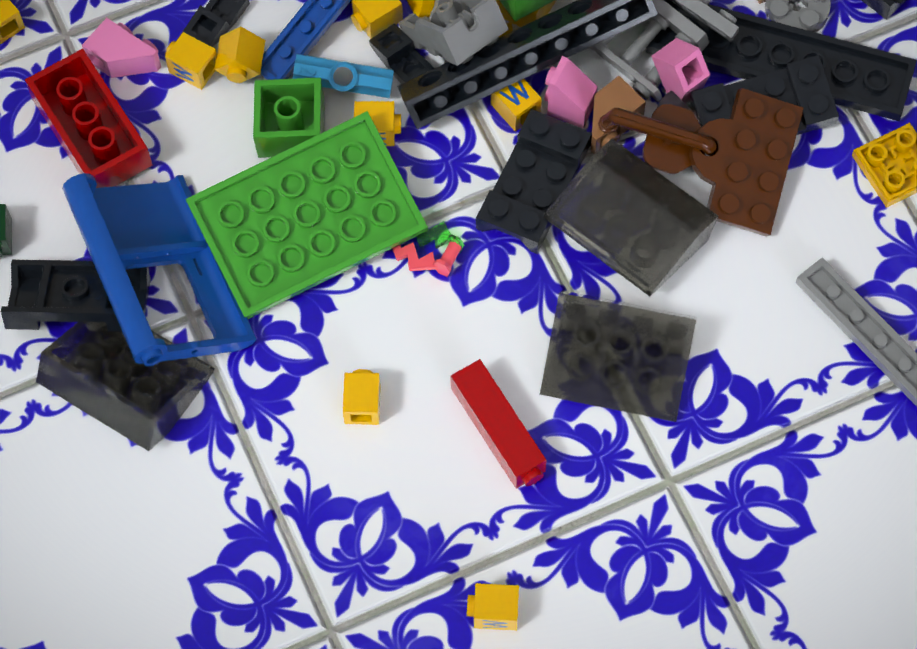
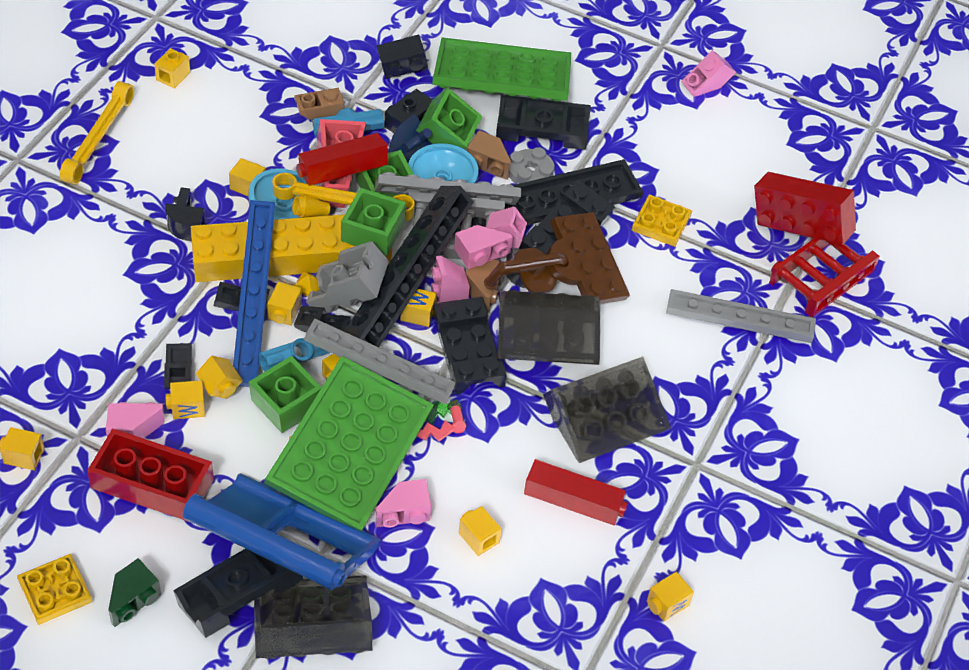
camera: 45 degrees left, 15 degrees down
(311, 317) = (405, 504): none -> bright pink slope
(408, 142) = (380, 361): none -> light grey plate
(633, 72) = (481, 245): none -> bright pink slope

